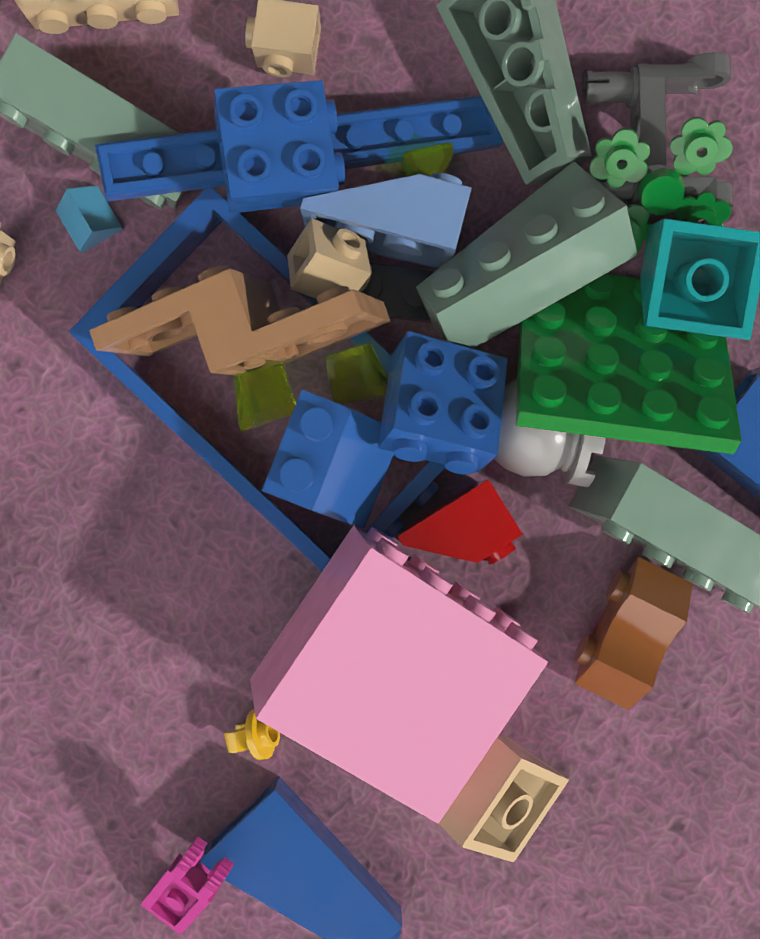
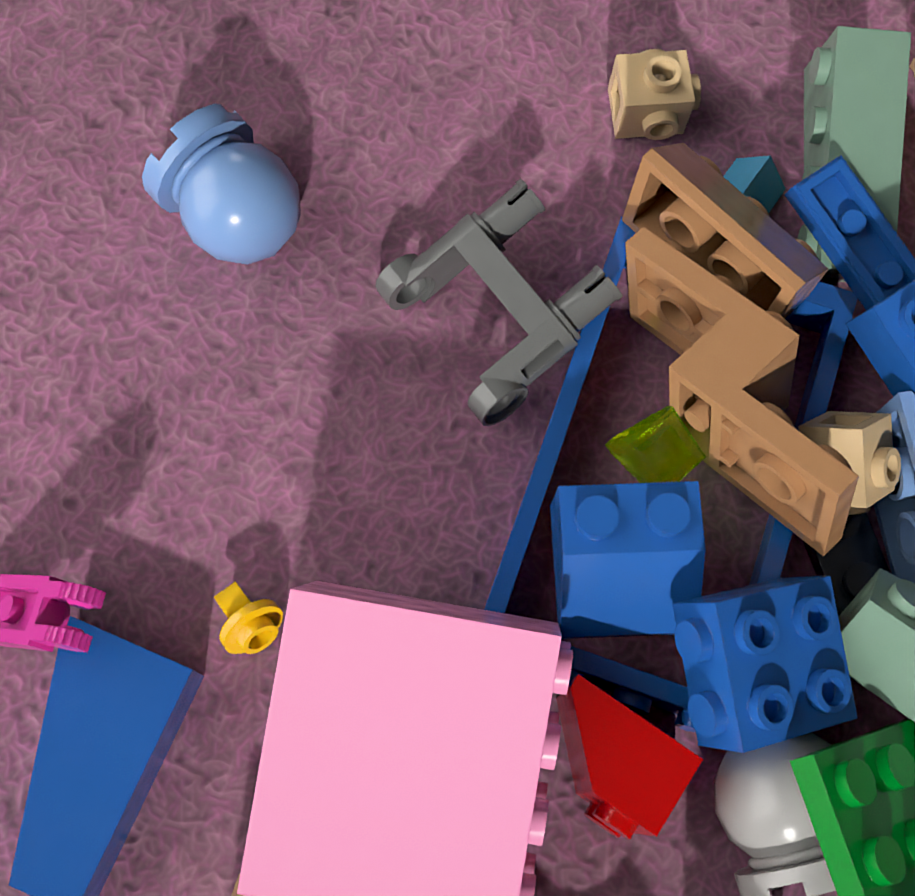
camera: 65 degrees right, 15 degrees down
(118, 269) = (721, 229): none -> medium nougat slope
(132, 431) = (549, 325): none -> dark grey connector
(355, 375) = (739, 547): clear neon green slope -> none

